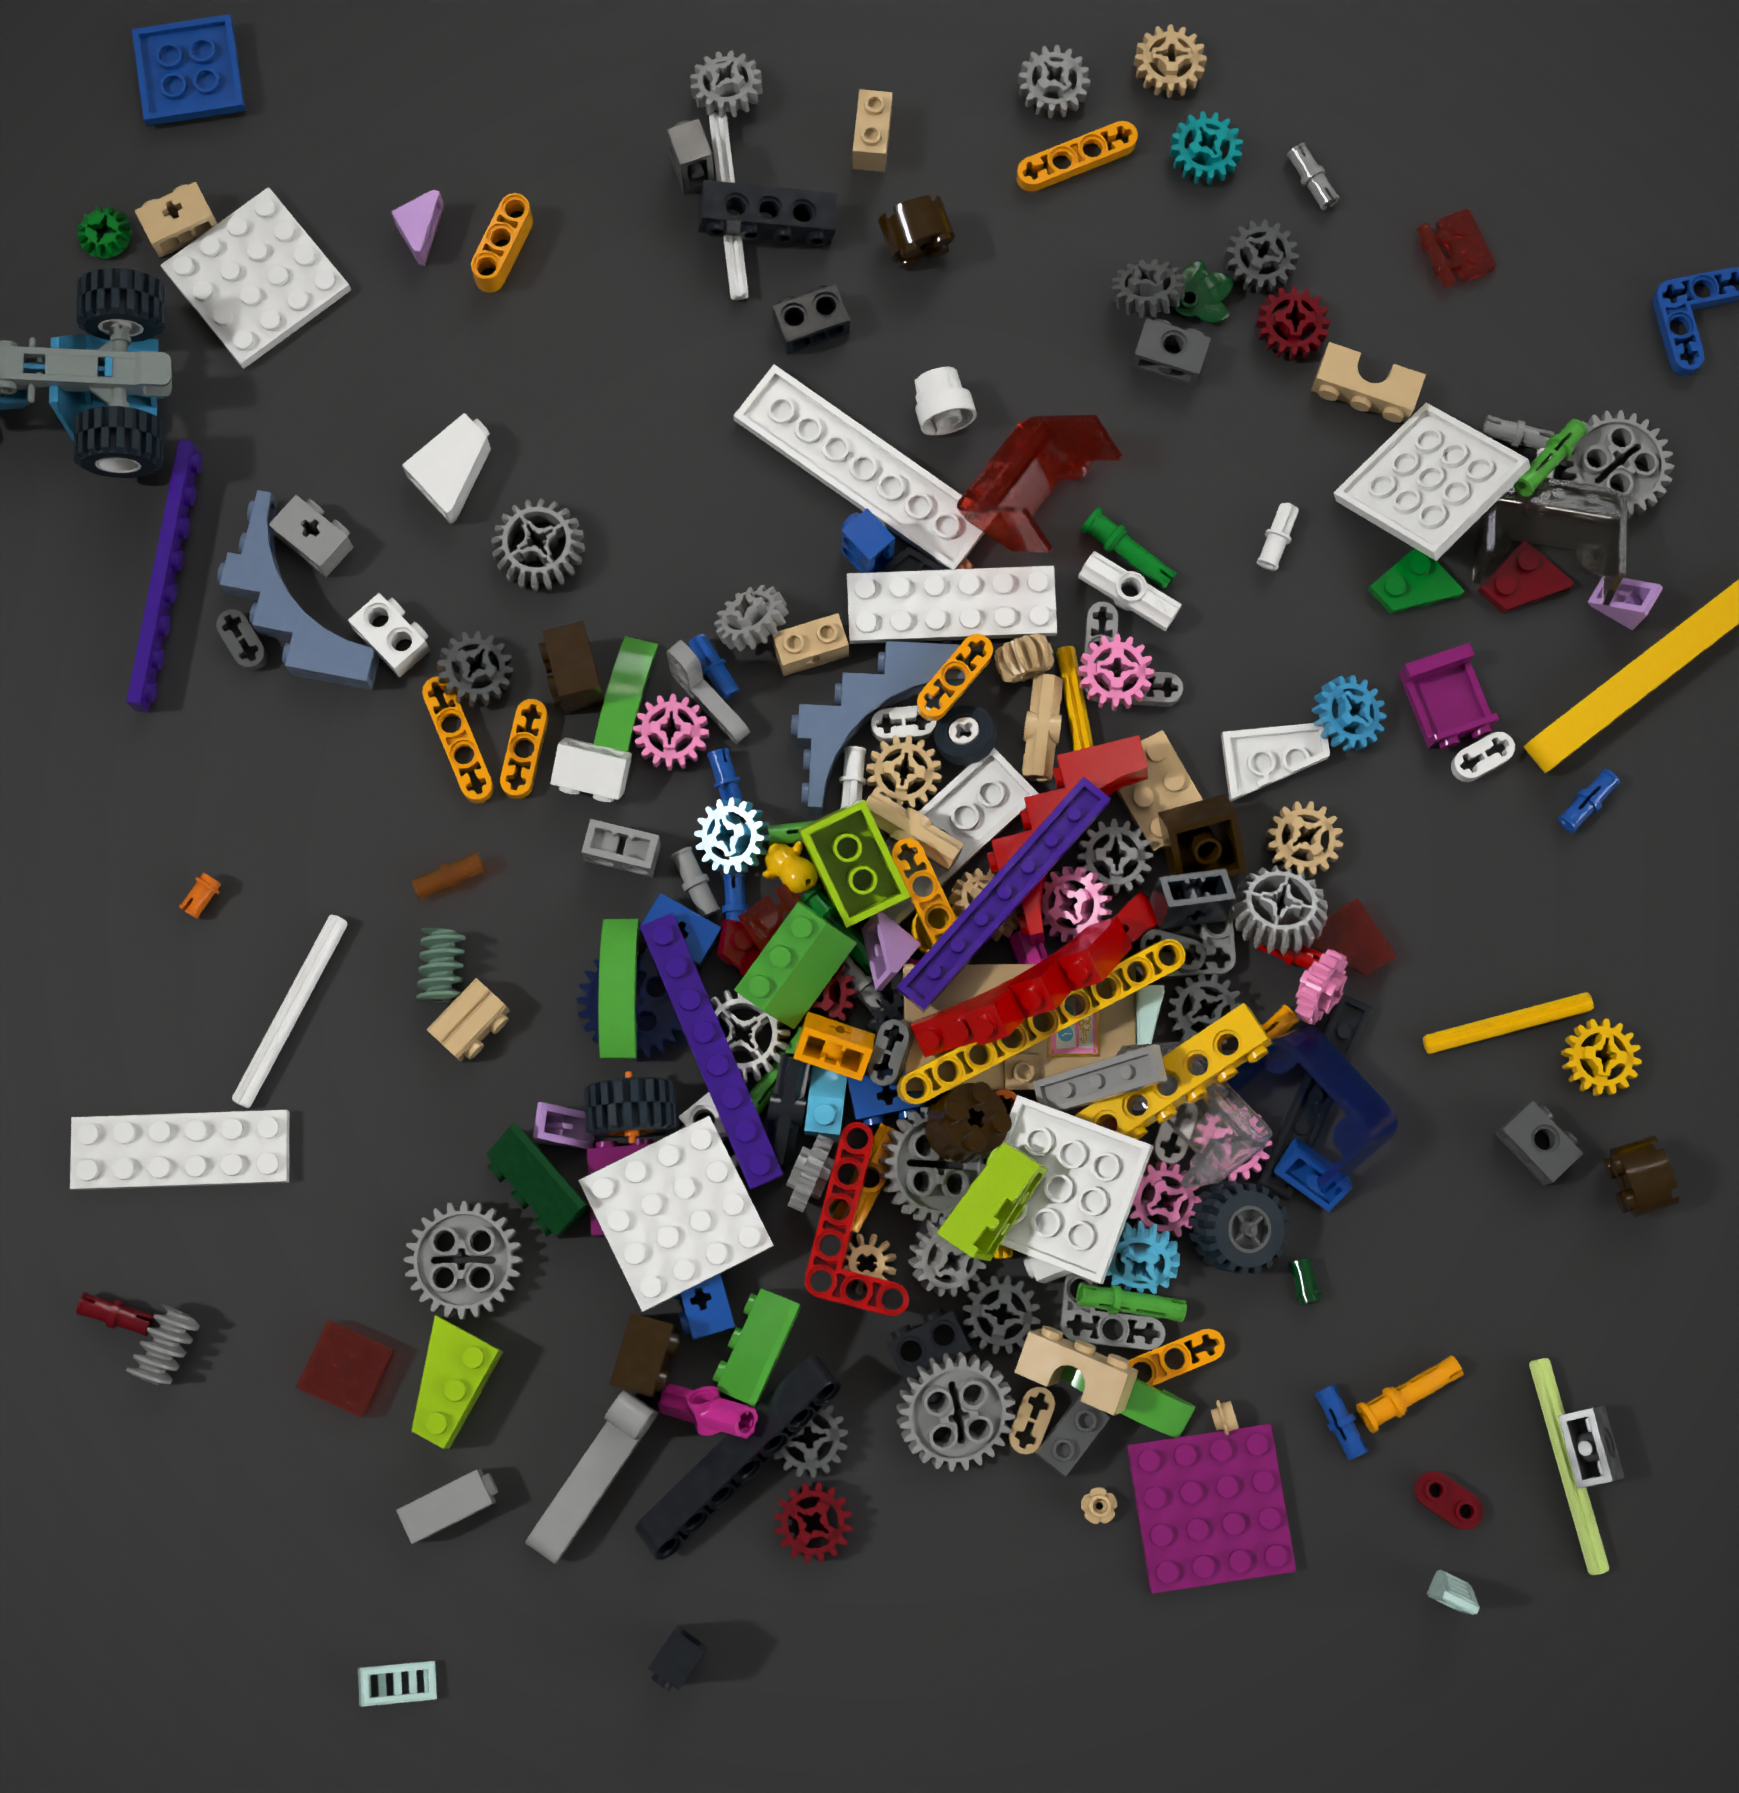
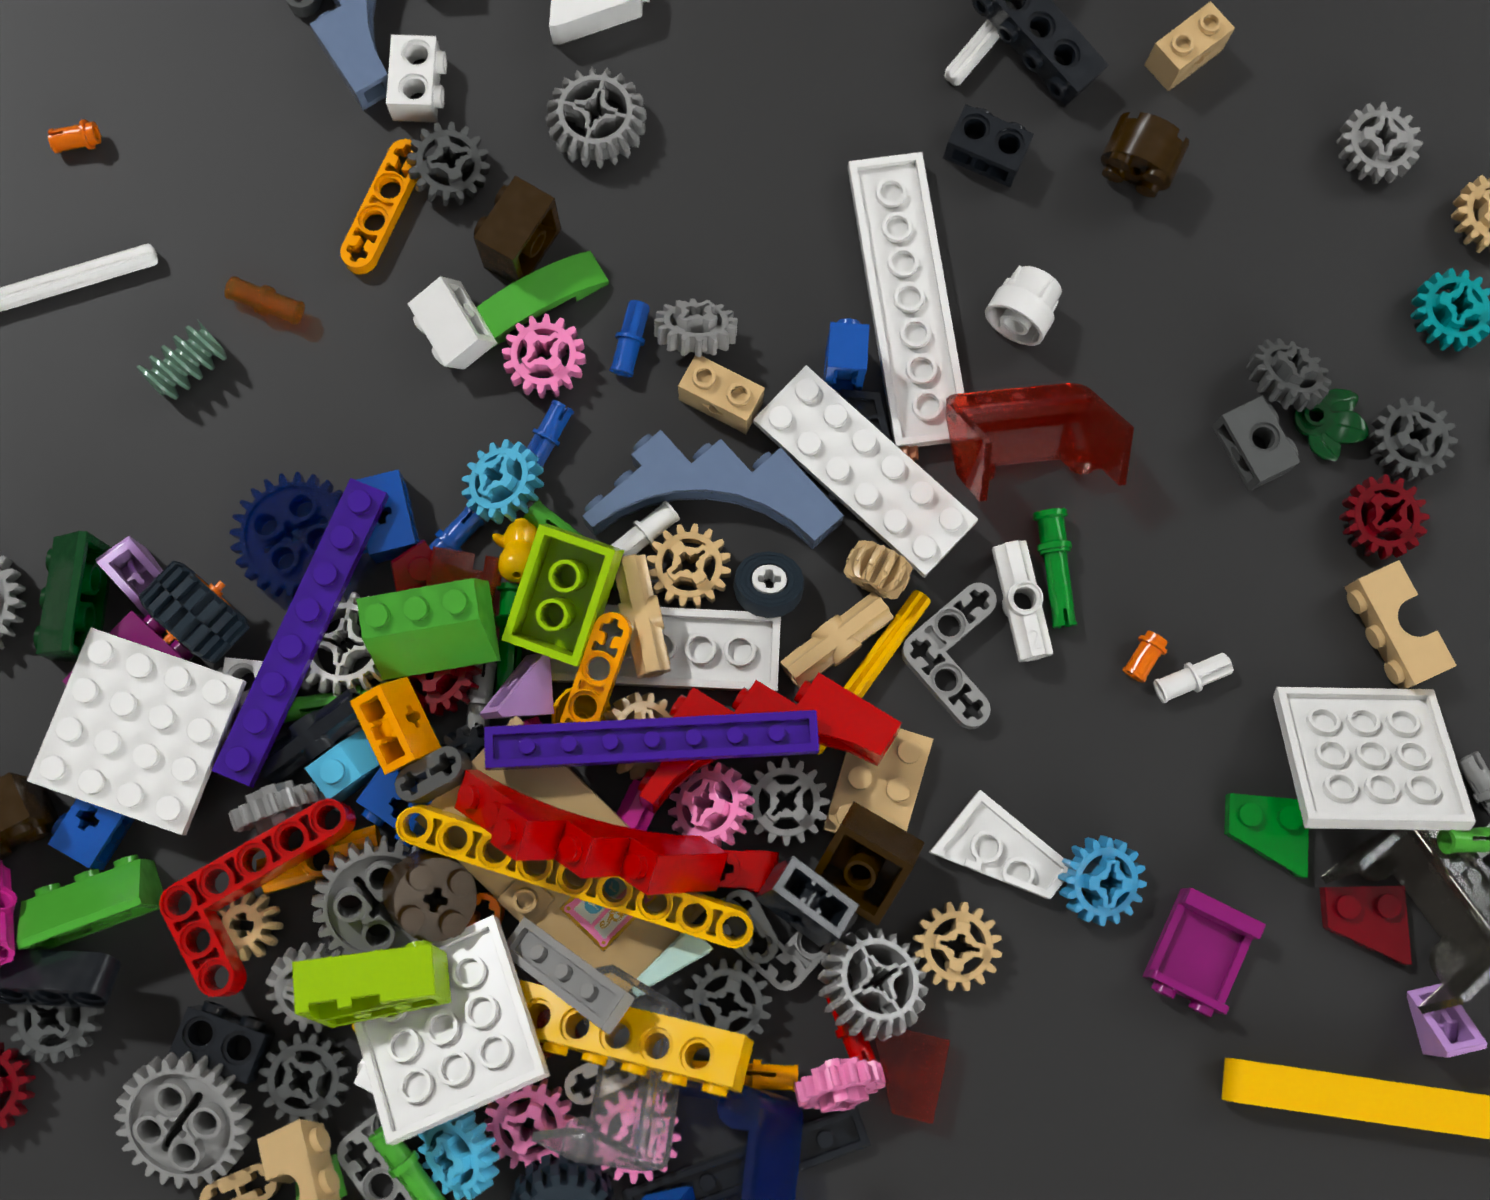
camera: 45 degrees right, 0 degrees up
(469, 1021) = (159, 424): tan brick -> none
(520, 722) = (420, 277): light orange beam -> none
(618, 989) = (283, 508): bright green slope -> none
(621, 848) = (408, 406): light grey brick -> none
(688, 673) = (600, 324): light grey beam -> none
(695, 882) = (439, 490): light grey pin -> none
(900, 715) = (737, 521): white beam -> none
(977, 664) = (833, 535): light orange beam -> none
(1079, 160) = (1339, 213): light orange beam -> none
(1102, 672) = (928, 642): bright pink gear -> none
(1237, 551) = (1145, 656): none -> orange pin
(1479, 750) = (1183, 1020): white beam -> none
(1589, 799) = (1208, 1160): blue pin -> none

